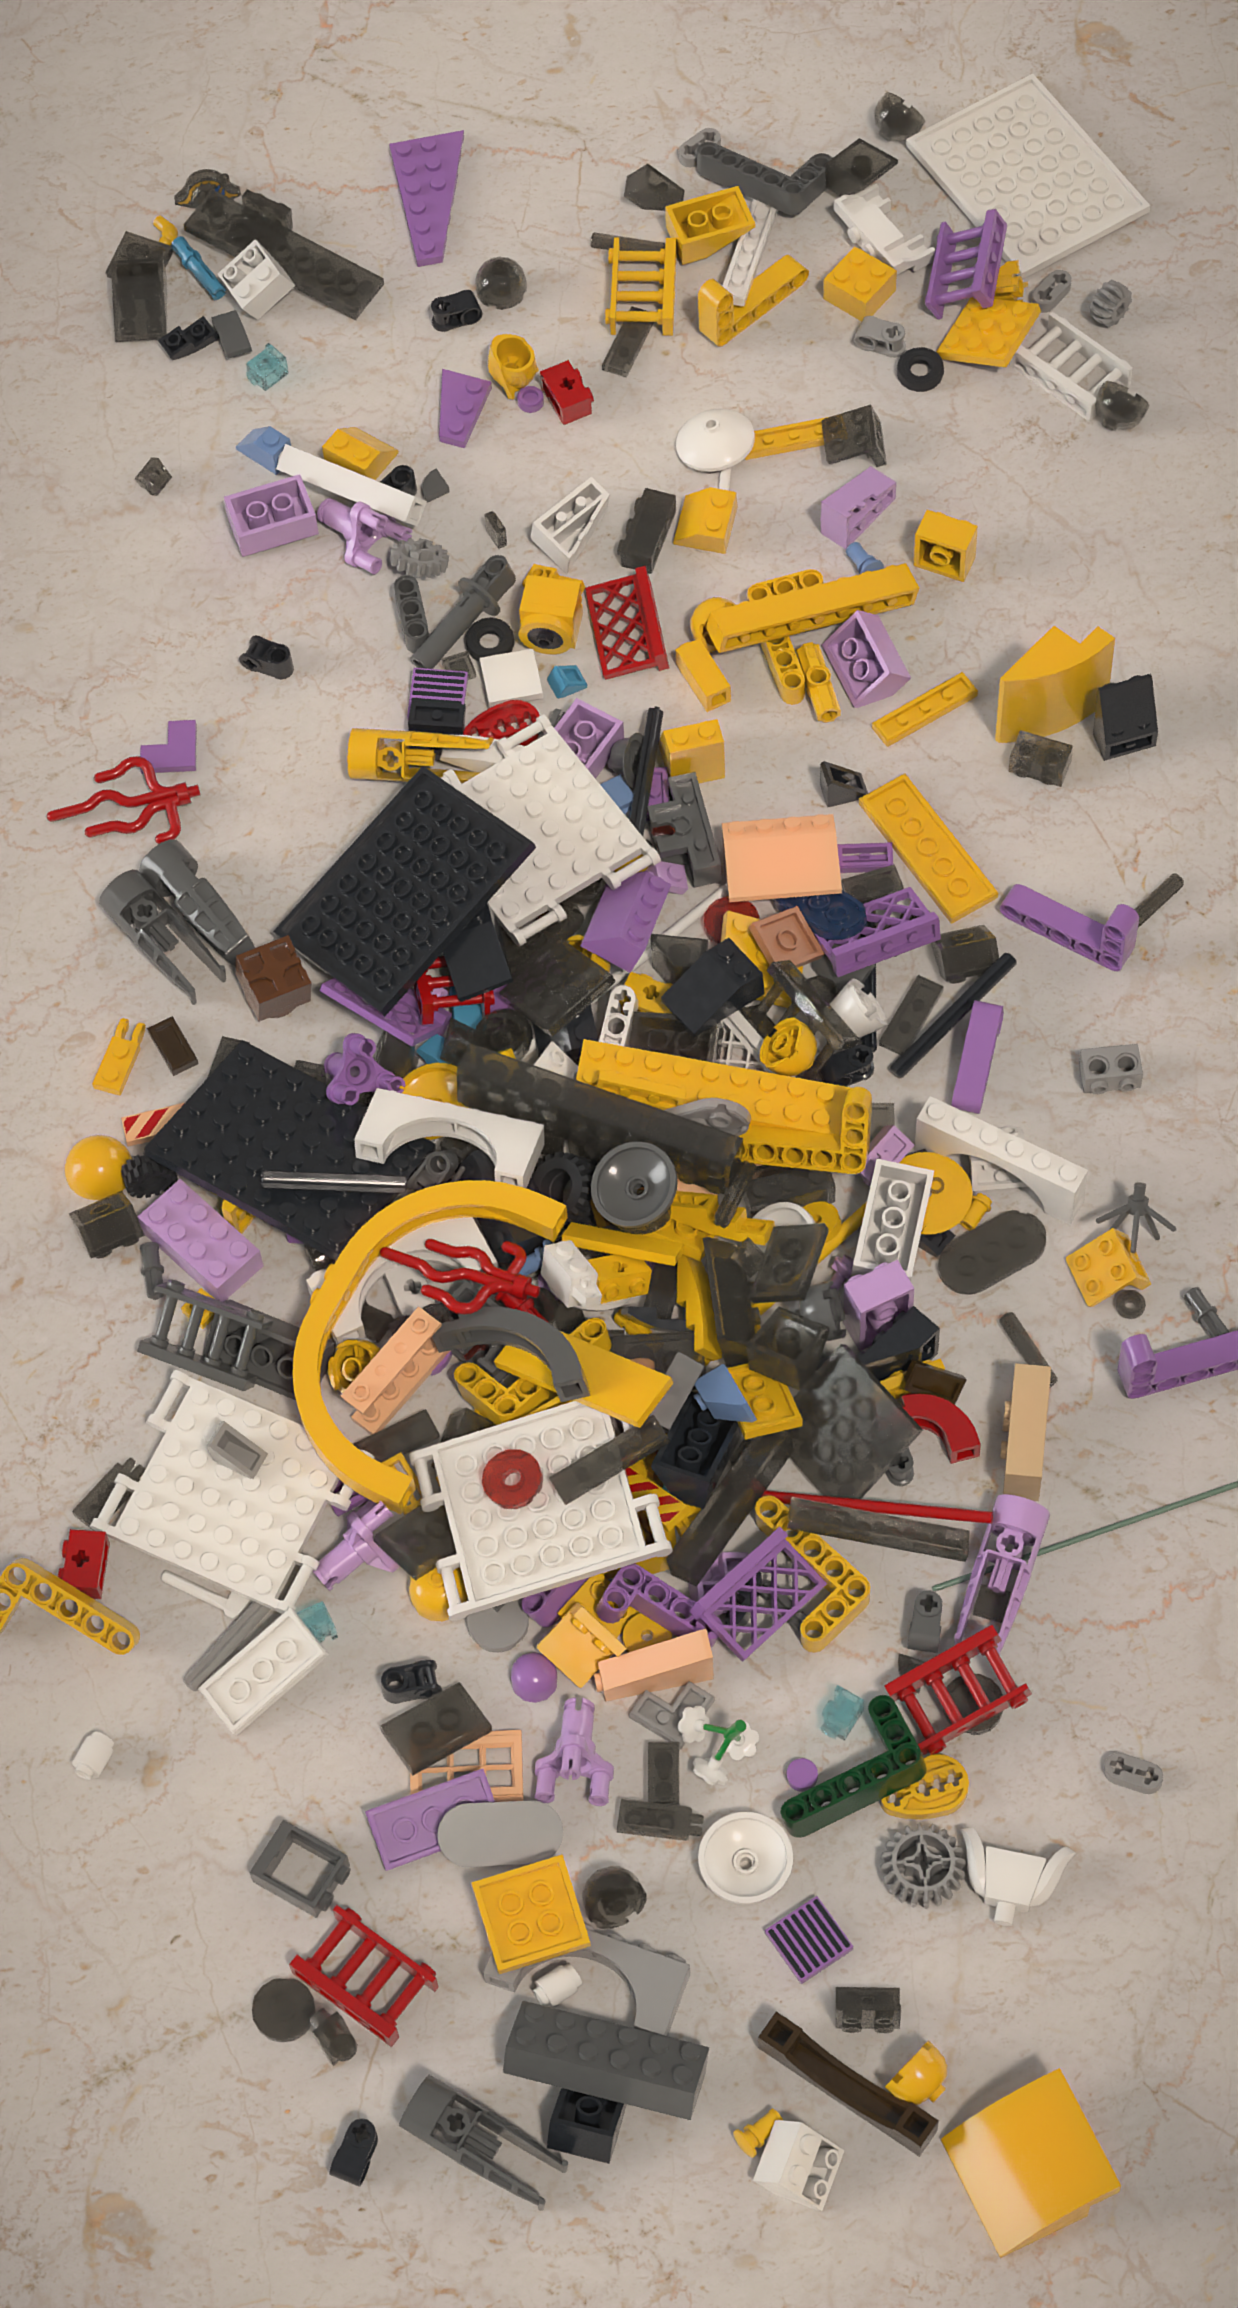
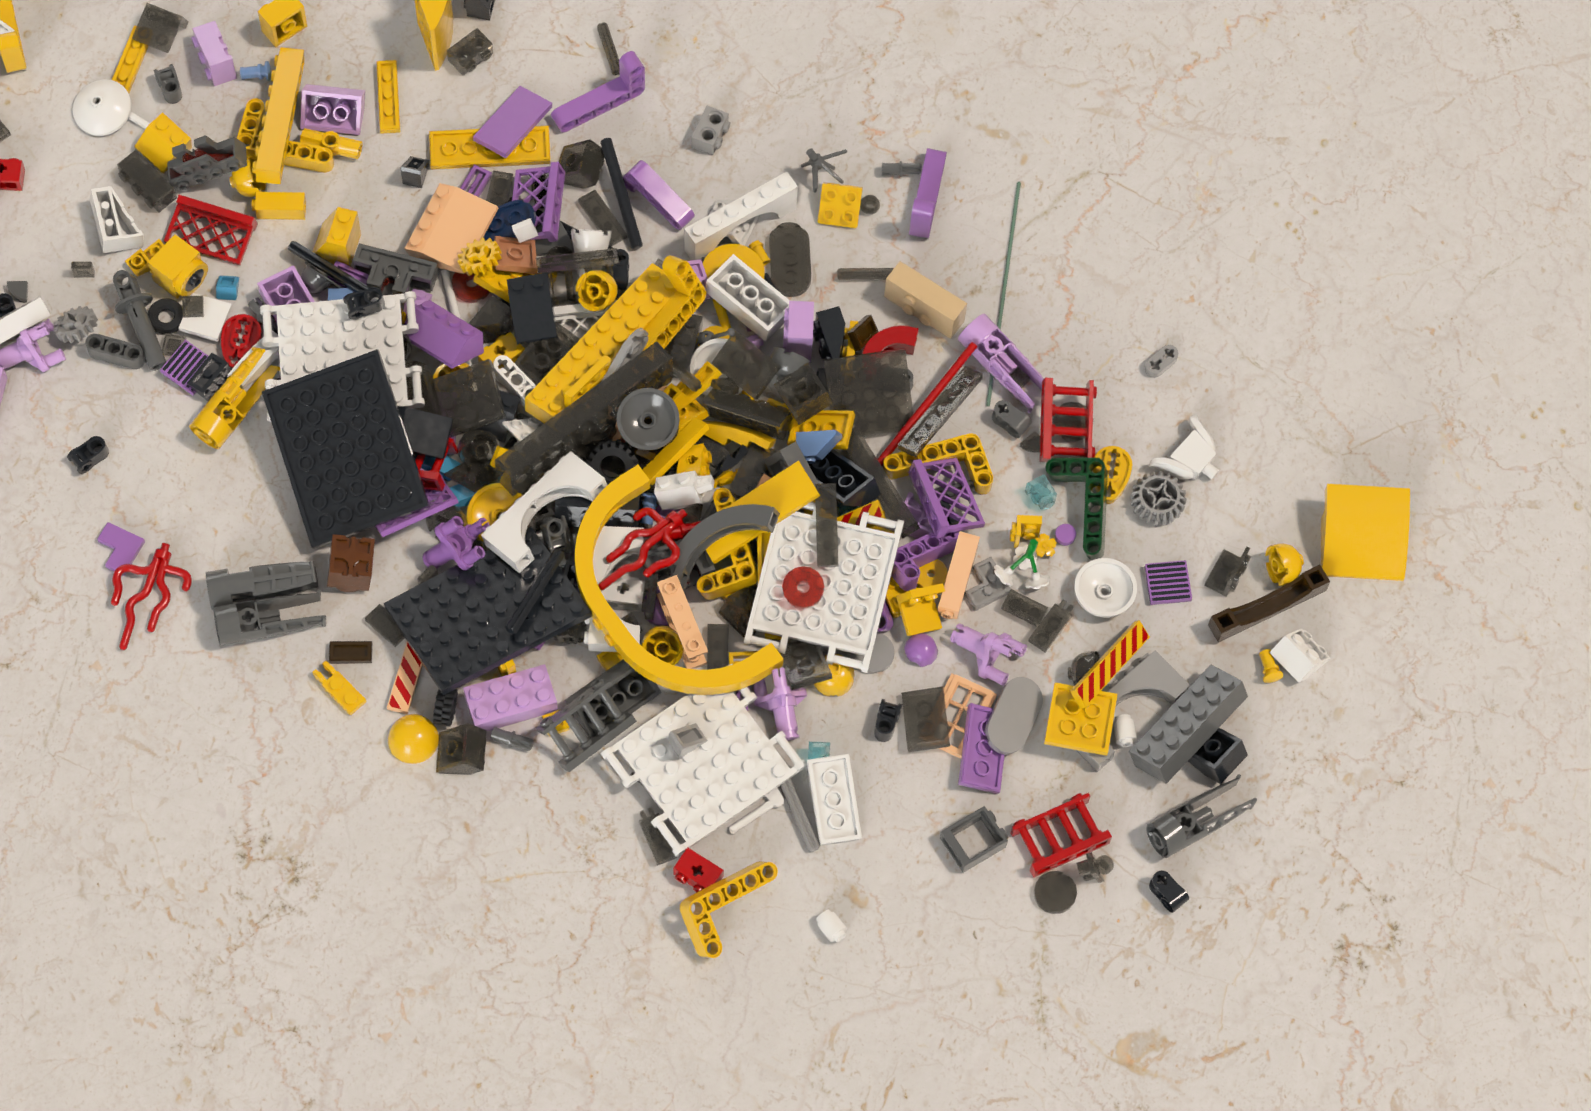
camera: 70 degrees left, 5 degrees up
(513, 656) = (192, 306): none -> clear smoke tile
(602, 807) = (363, 302): none -> black piece
(630, 1912) = (1109, 664): none -> yellow tile
(698, 564) = (205, 162): none -> dark grey piece
(752, 900) = (479, 256): none -> yellow gear
(765, 1706) = (1026, 527): none -> yellow bracket
(768, 1755) = (1045, 546): none -> yellow plant
(789, 486) = (168, 81): none -> dark grey piece
(813, 1208) = (710, 335): none -> dark grey hinge
(820, 930) = (524, 230): none -> white tile
(975, 851) = (512, 121): none -> medium lavender tile

